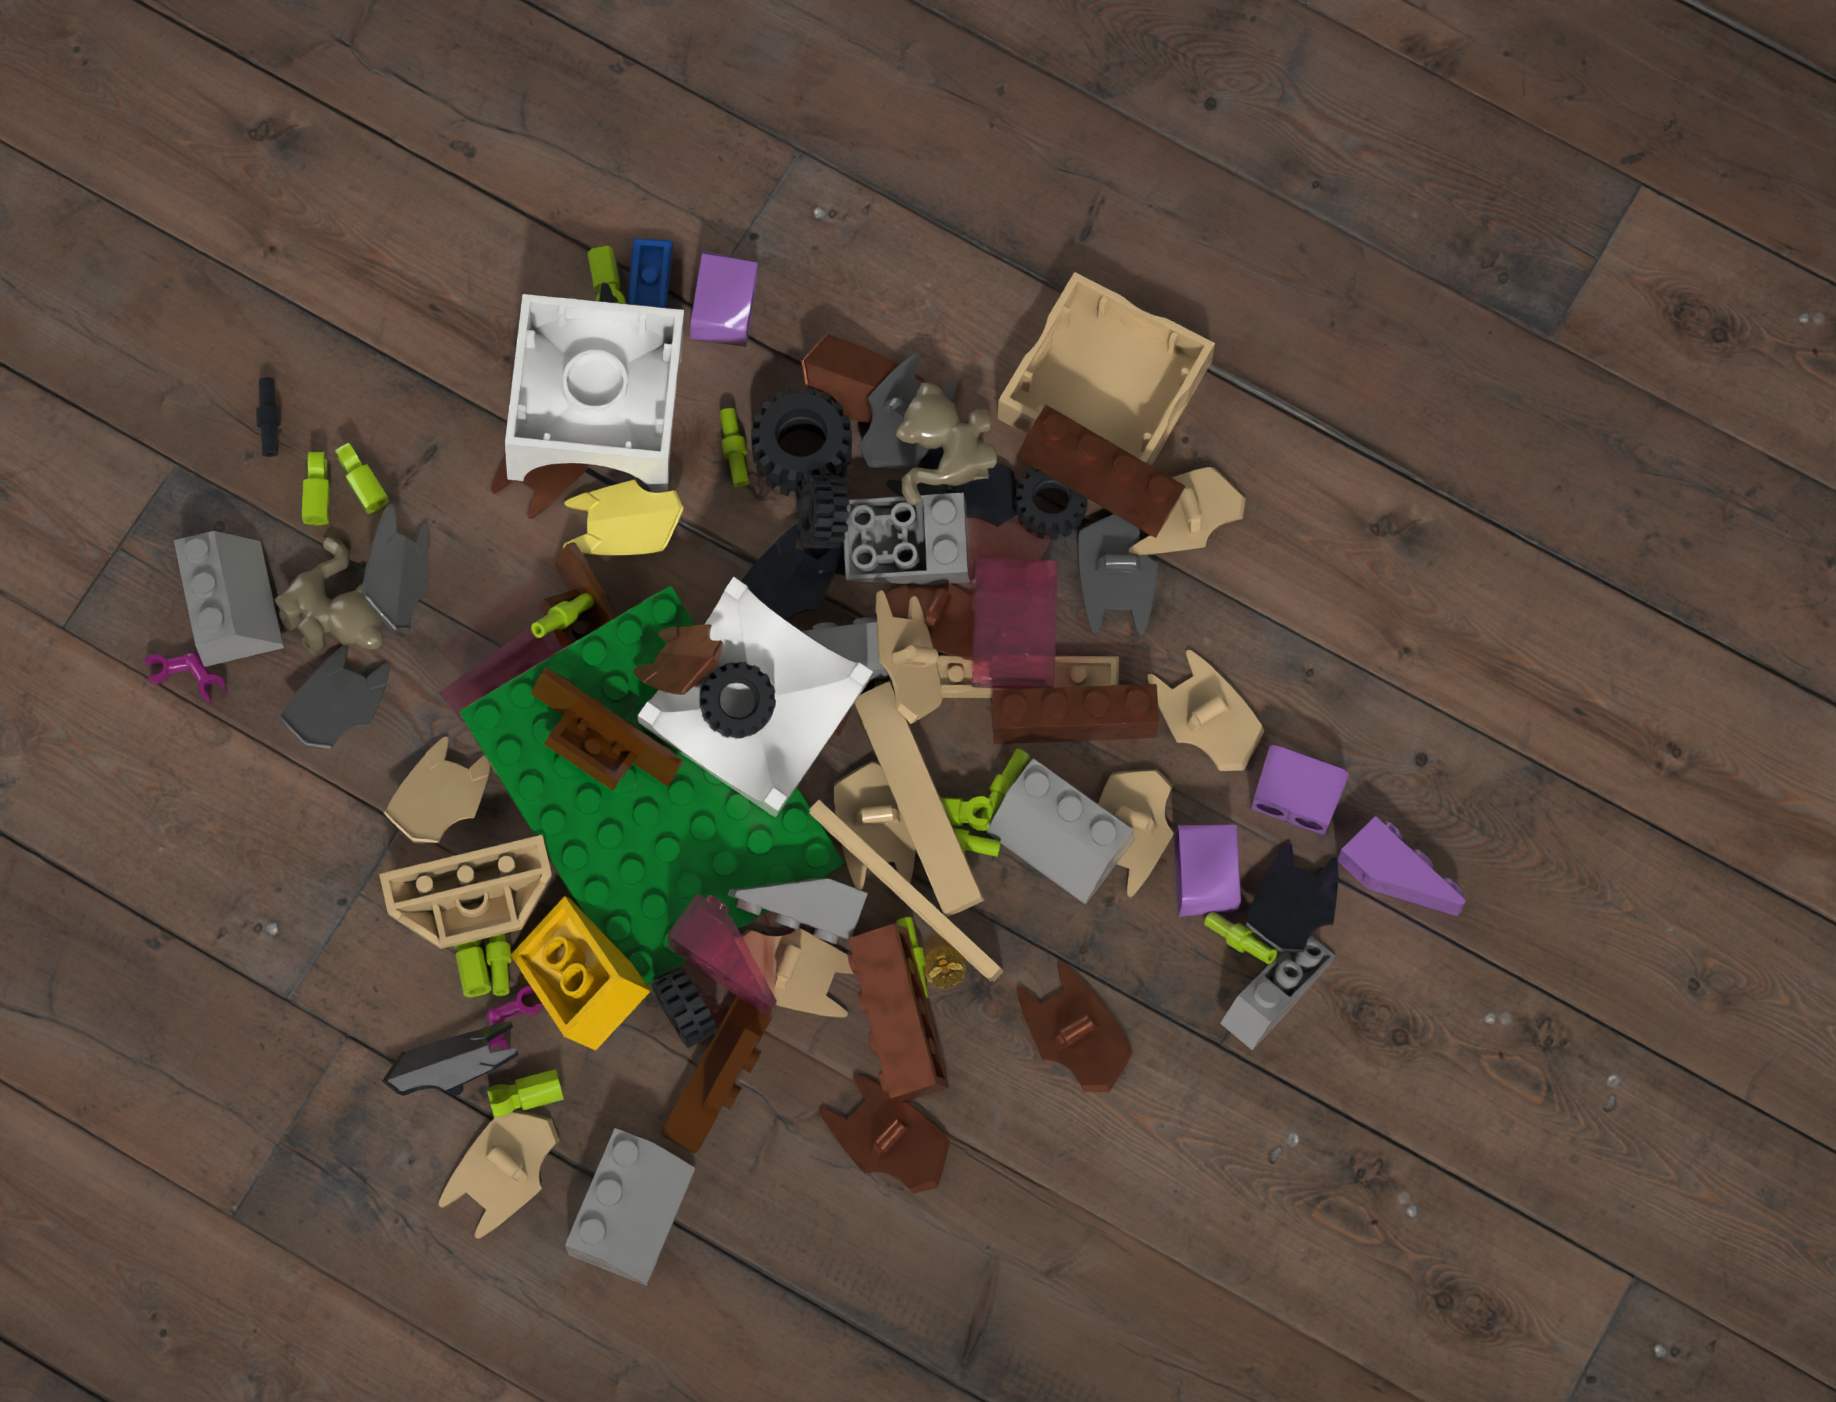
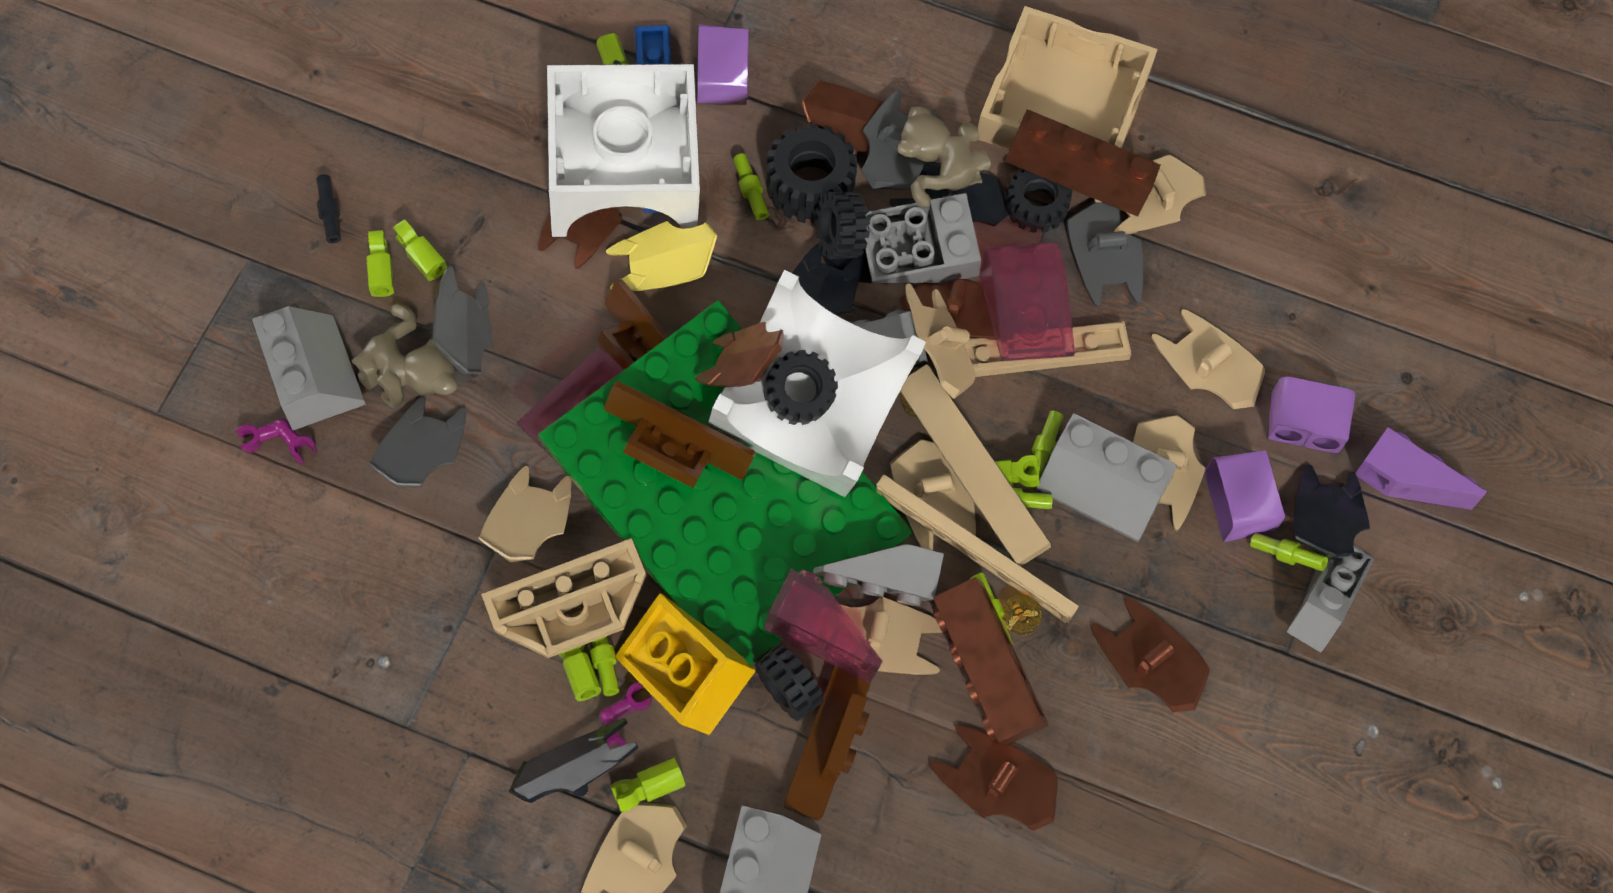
camera: 10 degrees left, 5 degrees down
(562, 615) = (620, 341): lime bar -> none
(1075, 714) = (1097, 373): copper brick -> none

